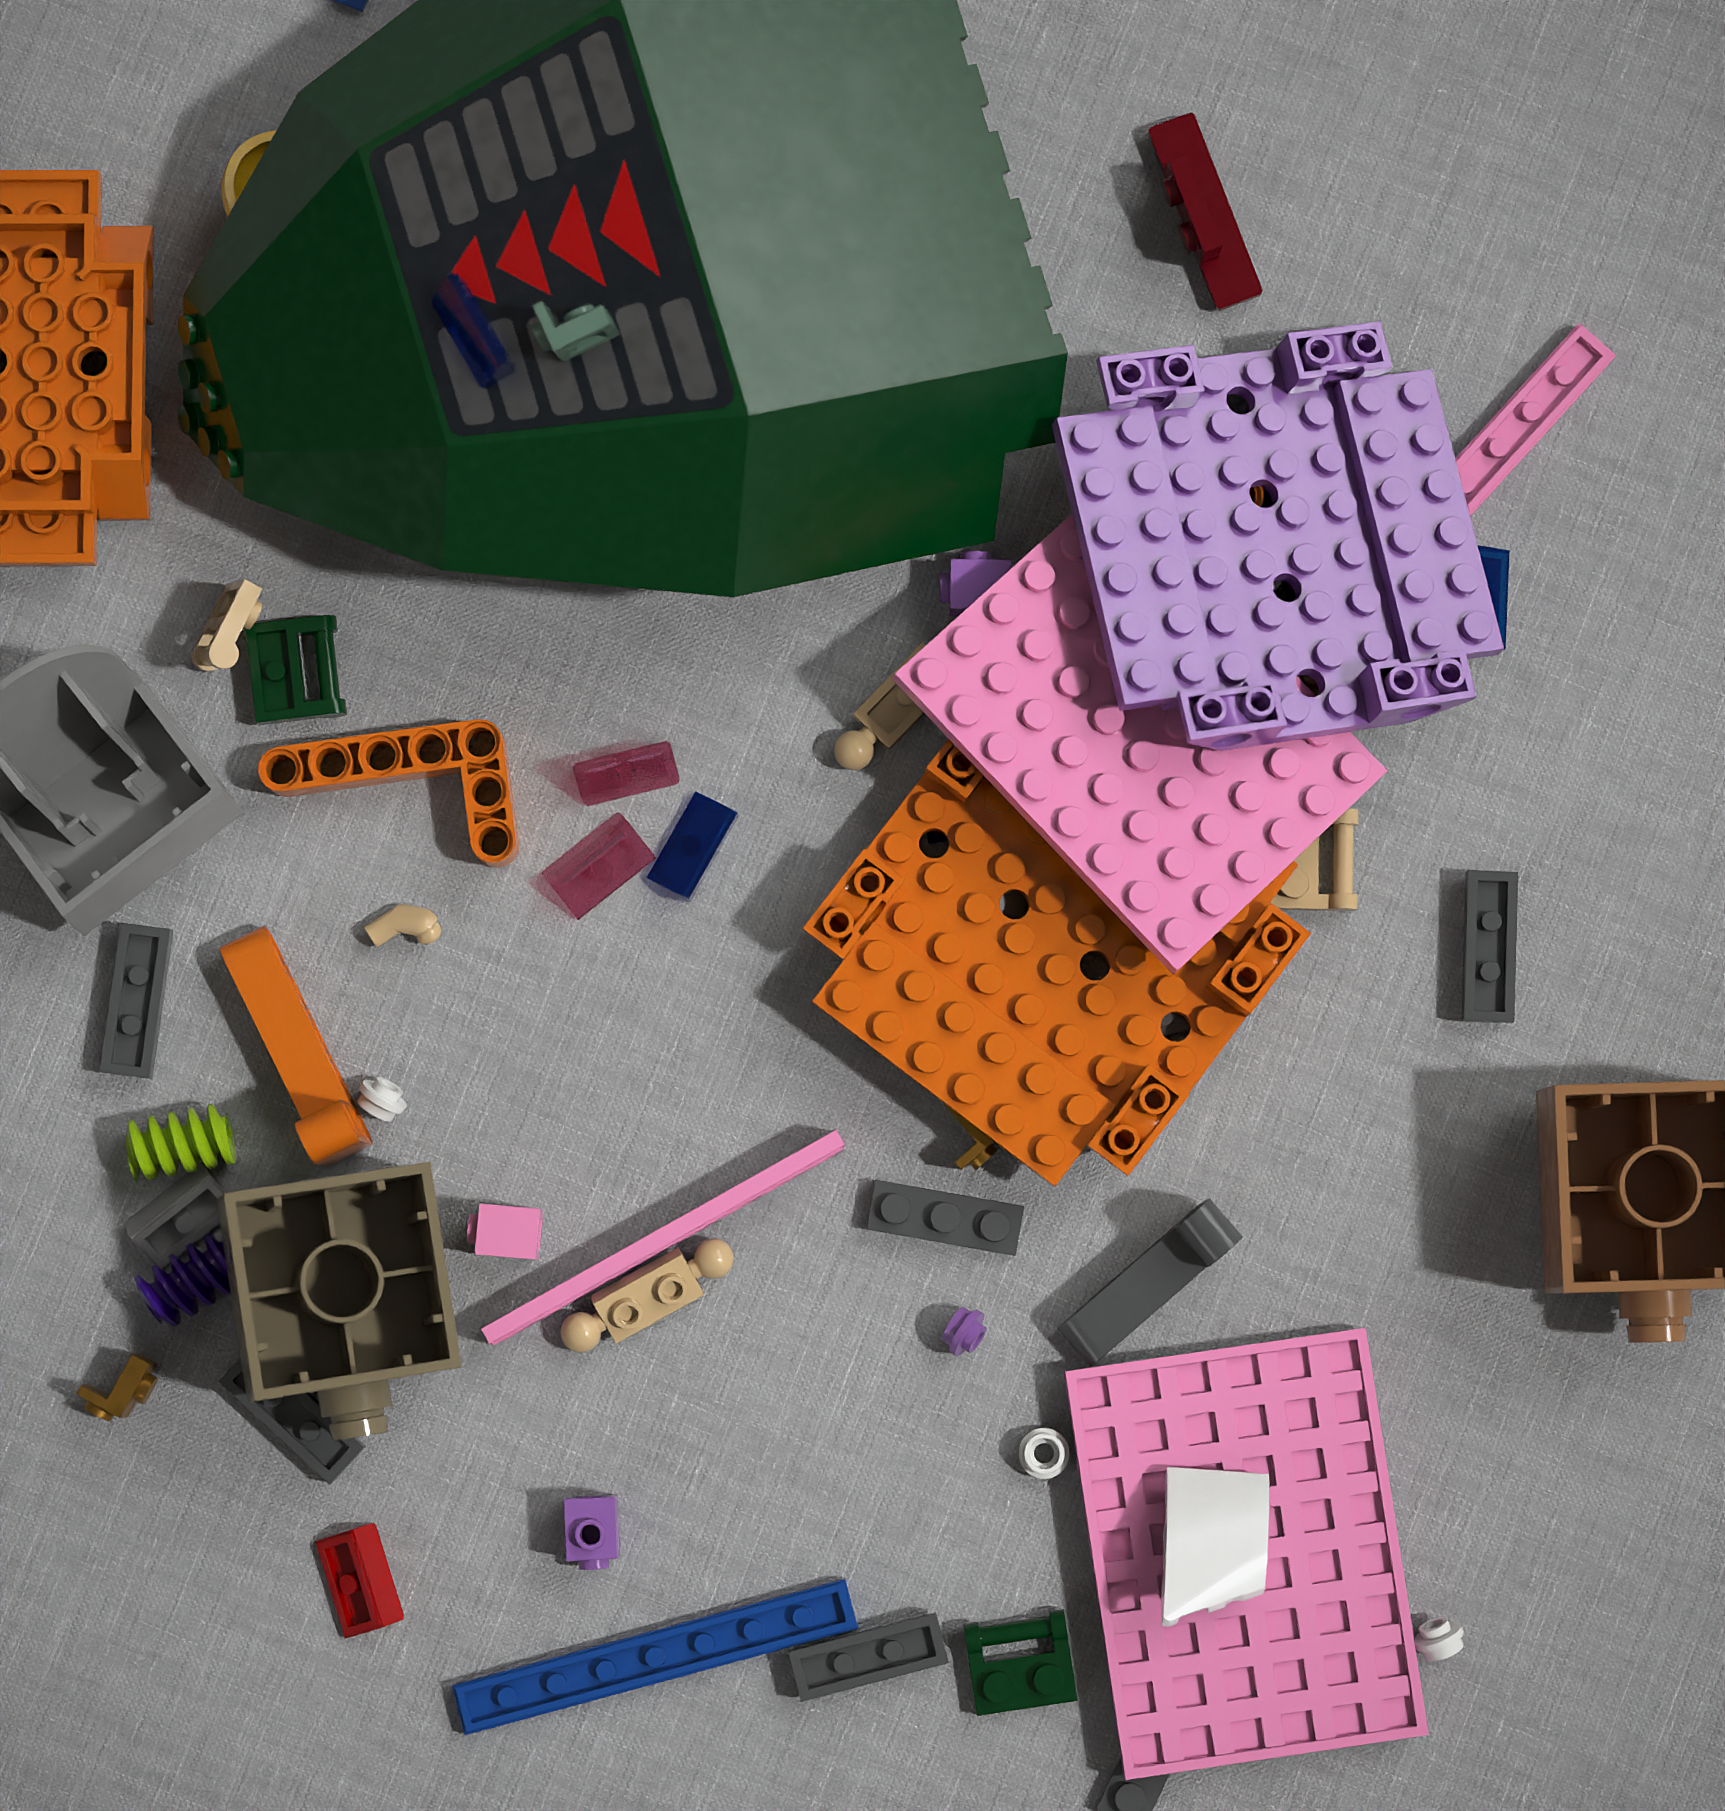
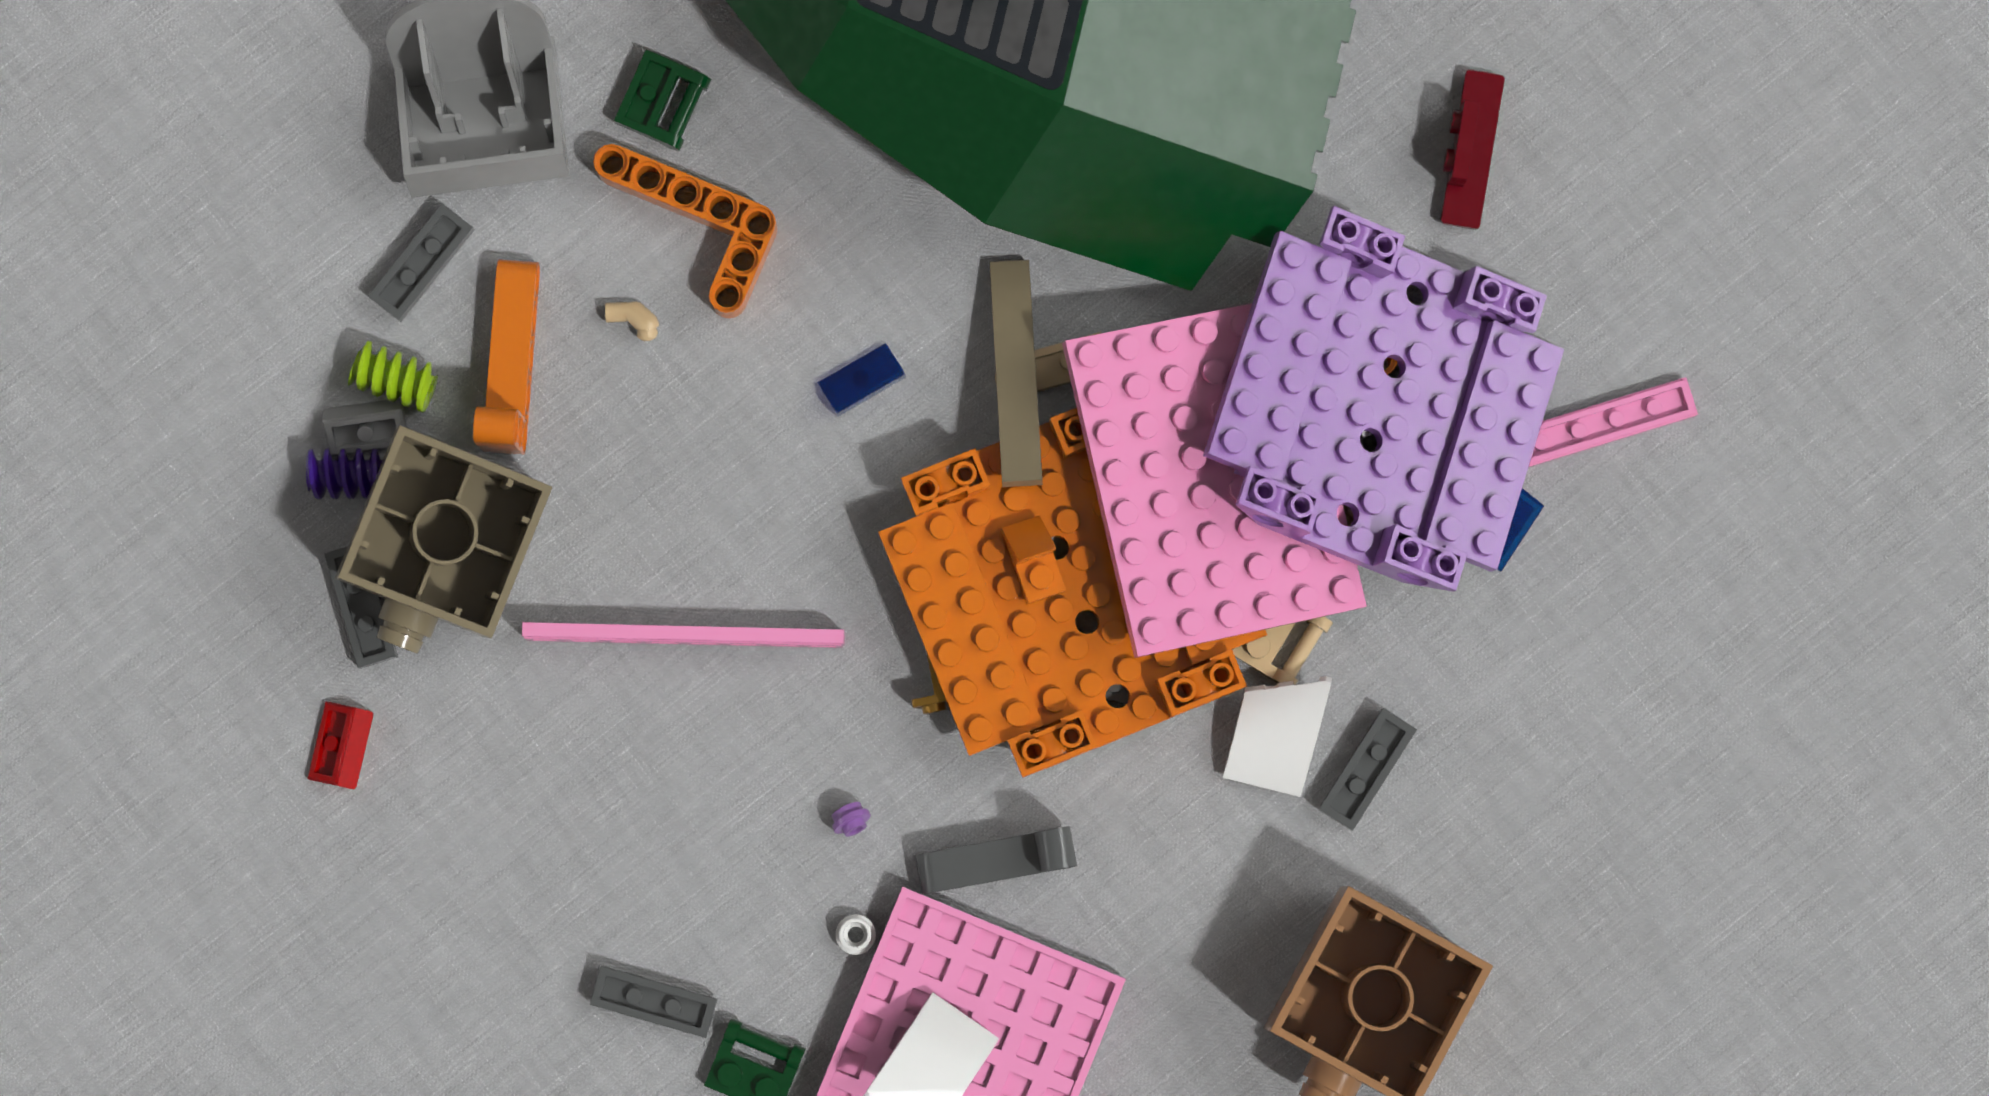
camera: 25 degrees right, 0 degrees up
(132, 1386) = (263, 522): pearl gold bracket -> none
(233, 612) = (640, 37): tan plate -> none
(381, 1098) = (548, 427): white plate -> none
(506, 1231) = (579, 567): bright pink brick -> none
(592, 1530) = (517, 804): medium lavender brick -> none
(598, 865) = (789, 355): clear pink slope -> none
(626, 773) = (845, 303): clear pink slope -> none
(647, 1295) = (649, 667): tan plate -> none
(654, 1656) = (509, 916): blue tile -> none
(858, 741) = (1015, 373): none -> dark tan tile
(945, 1217) = (883, 734): dark grey plate -> none
(970, 579) = (1159, 306): medium lavender brick -> none
(998, 931) = (1034, 559): none -> orange slope
(1371, 966) = (1277, 735): none -> white slope

